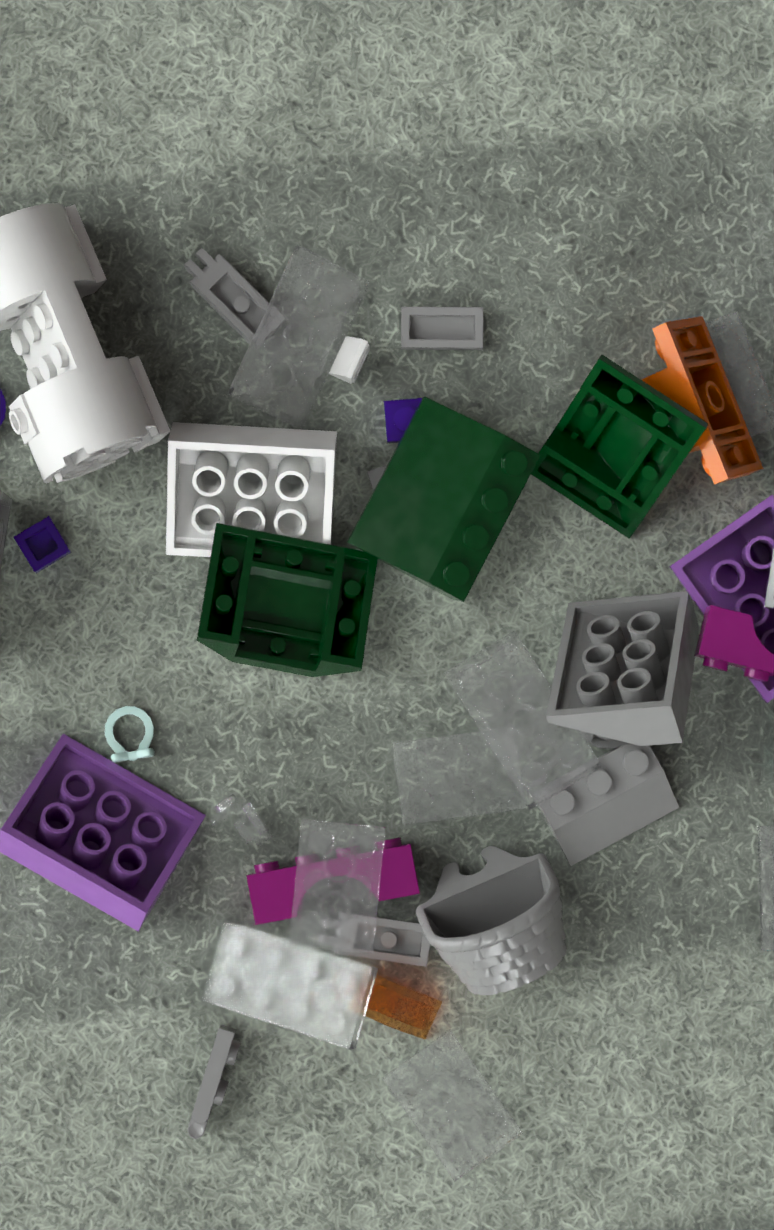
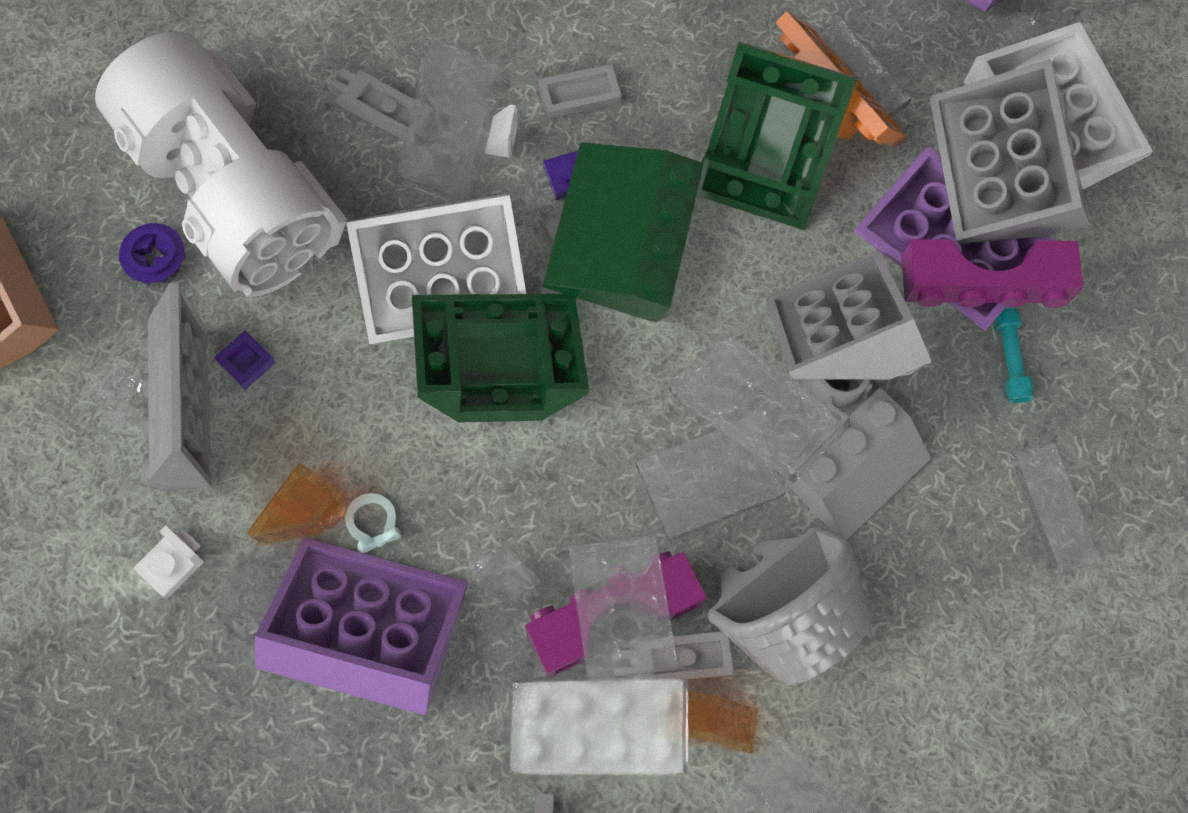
camera: 20 degrees left, 15 degrees down
(65, 708) = (299, 509): none -> clear orange slope

